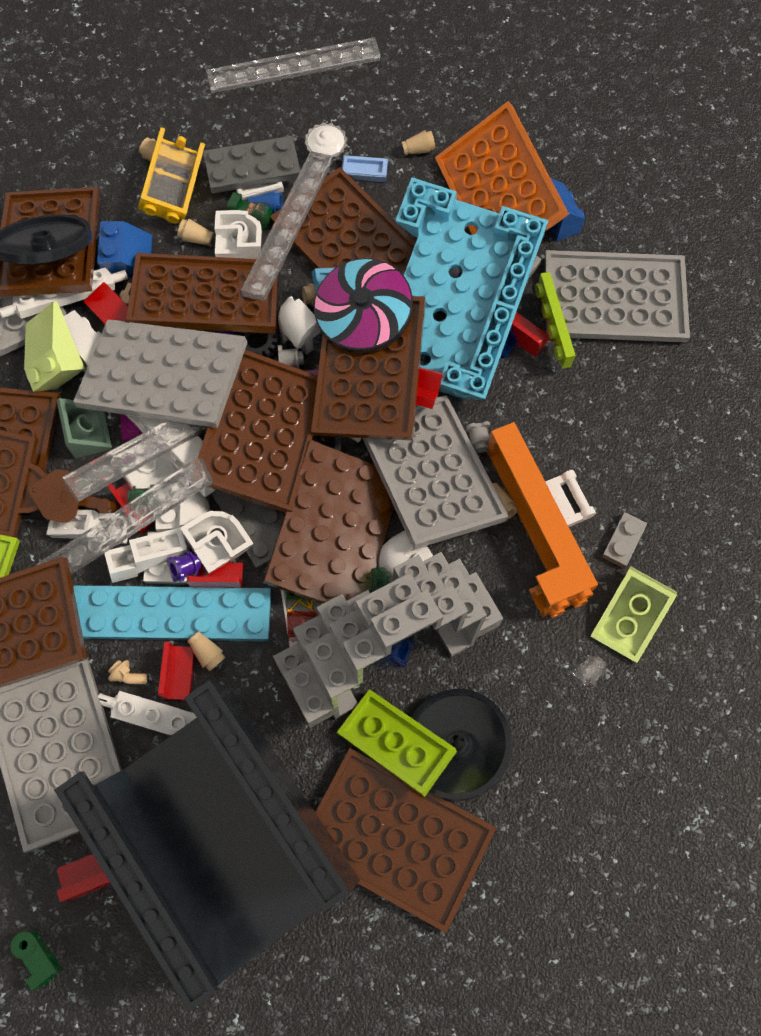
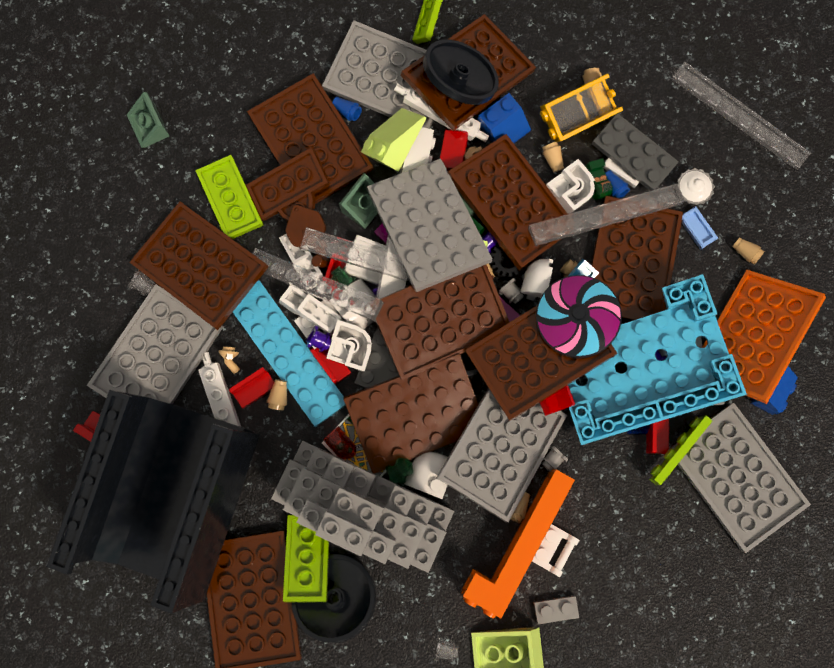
camera: 55 degrees right, 10 degrees up
(36, 957) = (37, 441): dark green leg -> none

